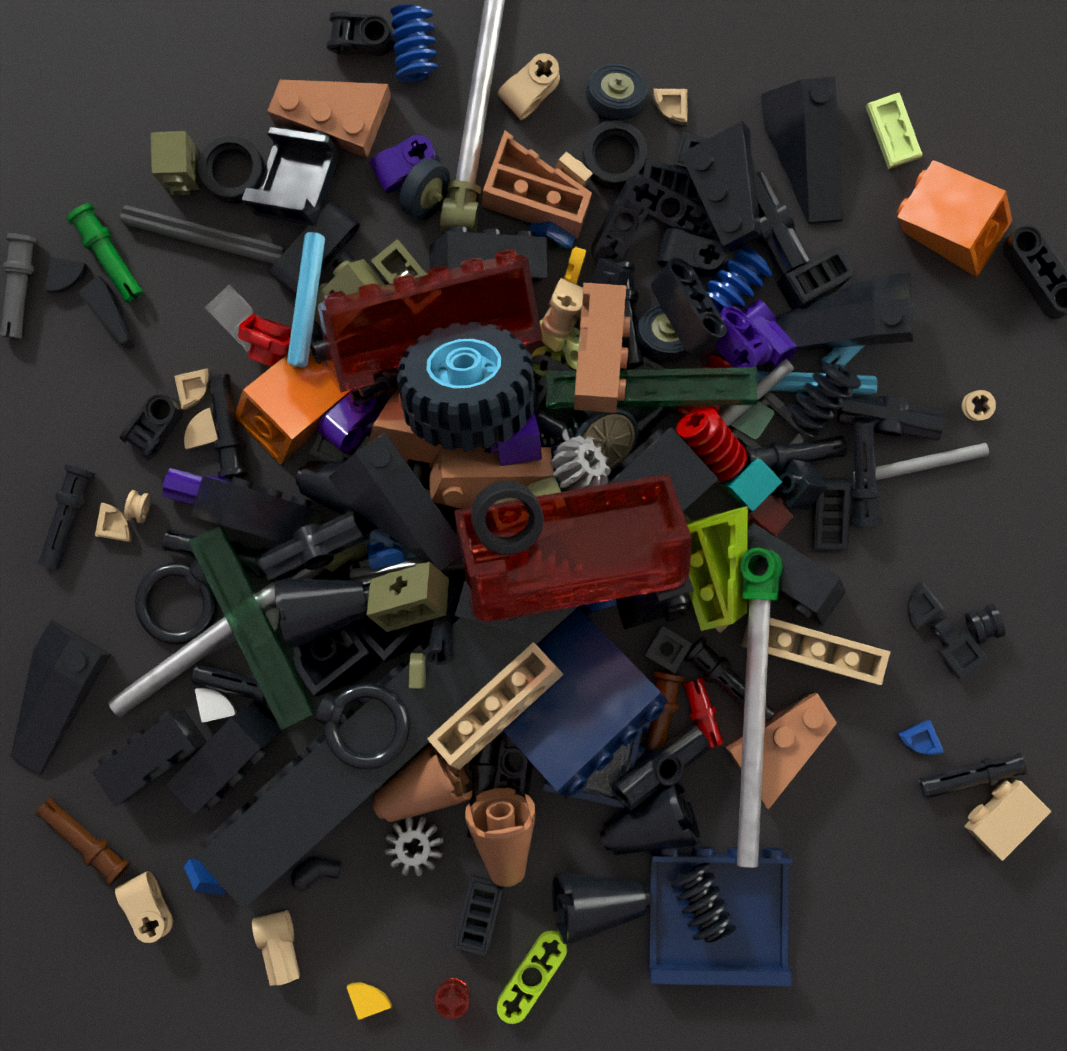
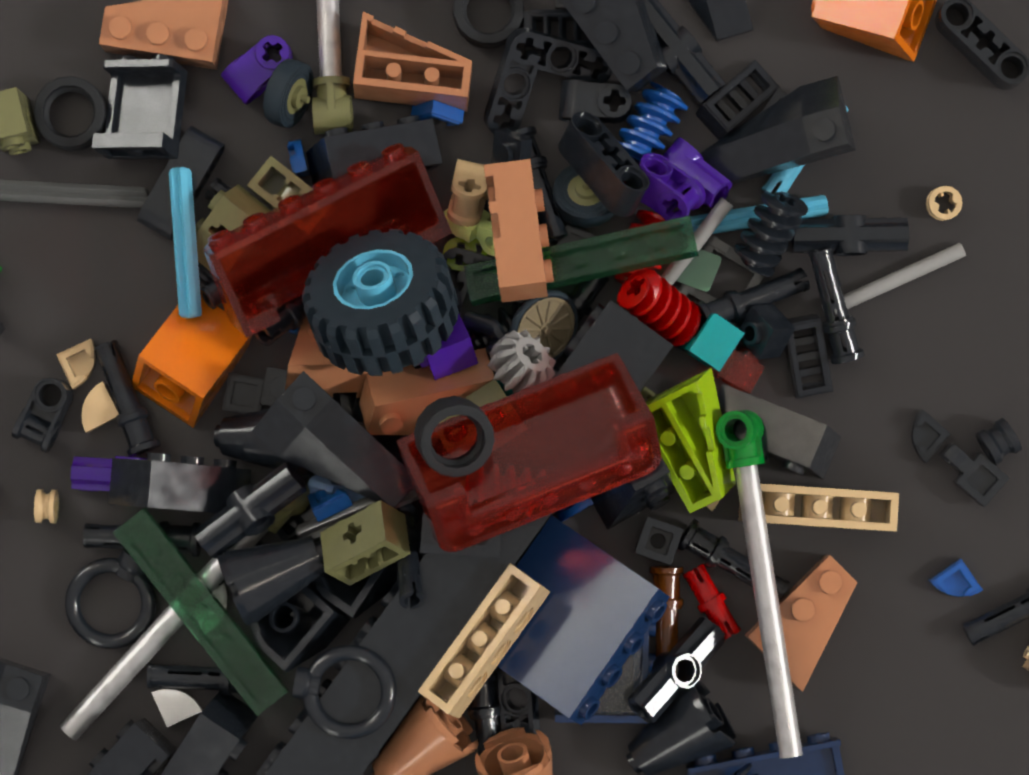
camera: 10 degrees left, 0 degrees up
(112, 524) = (23, 531): tan tile -> none
(230, 312) = (108, 275): clear tile -> none
(267, 341) = (152, 295): red piece -> none
(348, 423) = (259, 367): dark purple piece -> none
(417, 671) = (392, 621): olive tile -> none
(421, 249) = (298, 158): none -> blue tile
(574, 169) = (447, 37): tan plate -> none
(575, 265) = (470, 142): yellow tile -> none

